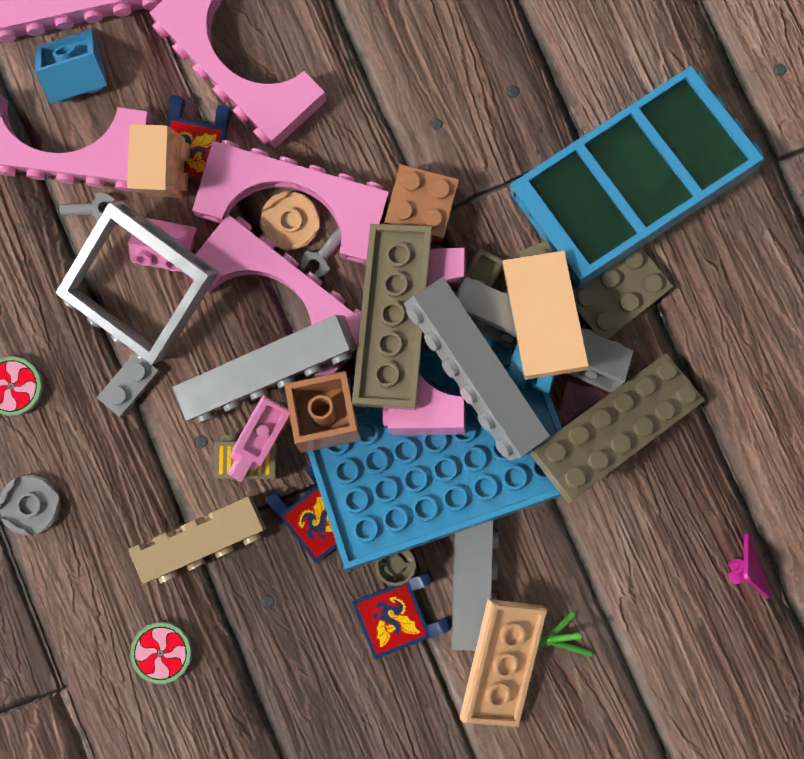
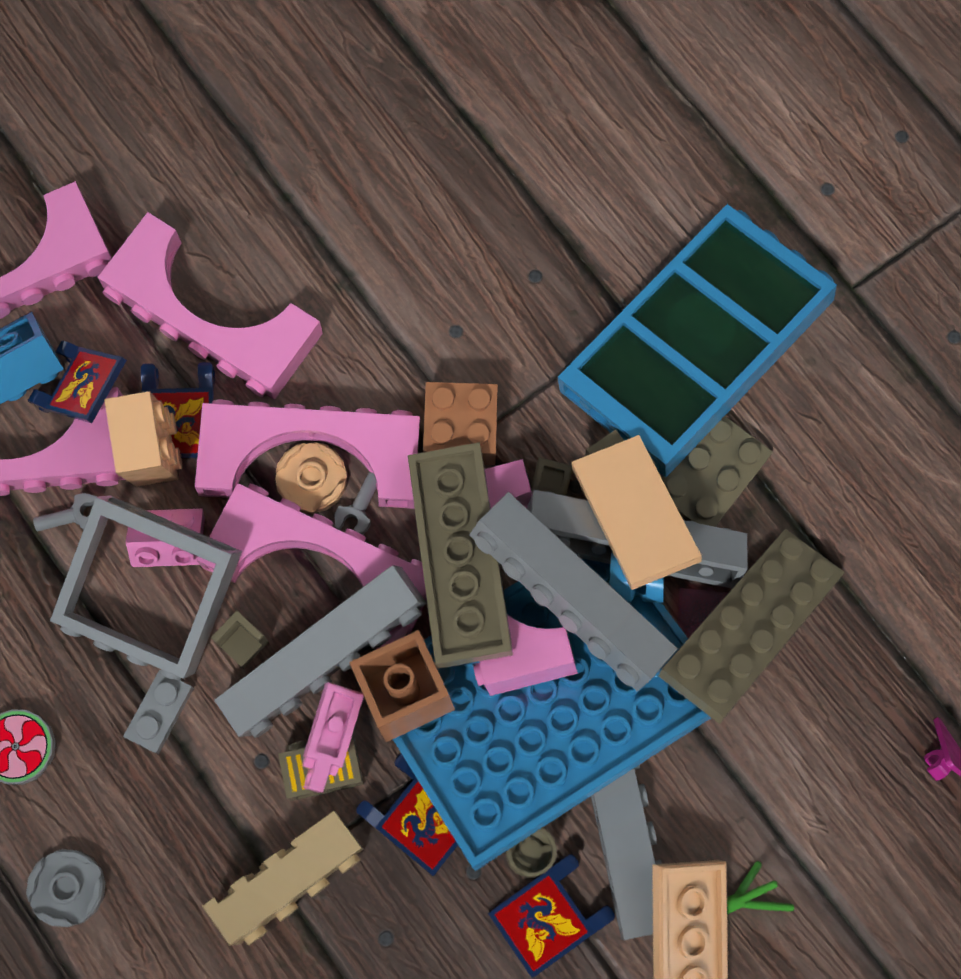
camera: 20 degrees left, 10 degrees down
(120, 101) = (83, 383): none -> flag
(204, 341) = (240, 639): none -> dark tan panel

